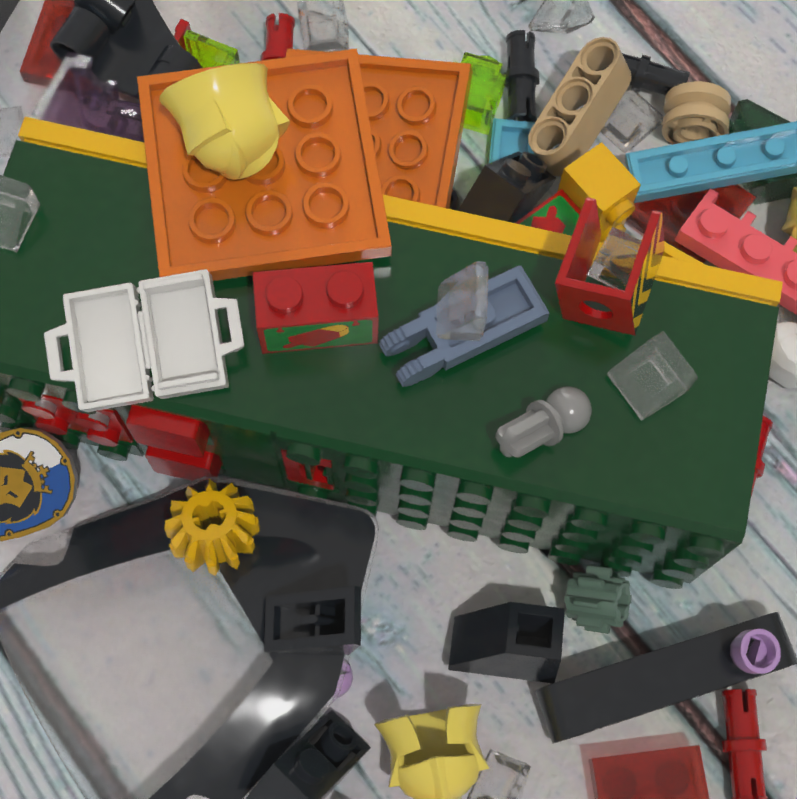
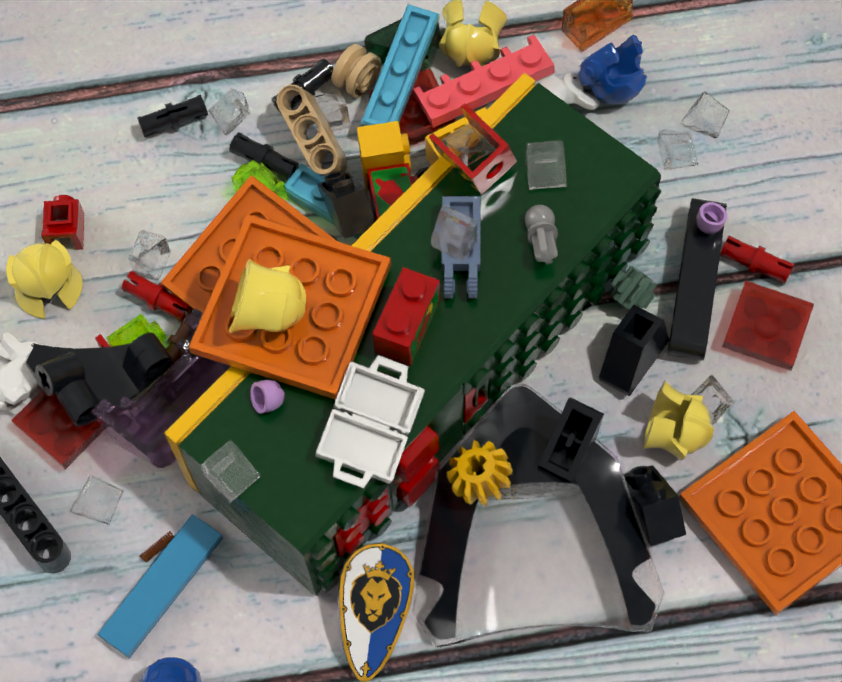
camera: 55 degrees left, 5 degrees down
(124, 202) = (266, 396): none -> lavender hinge

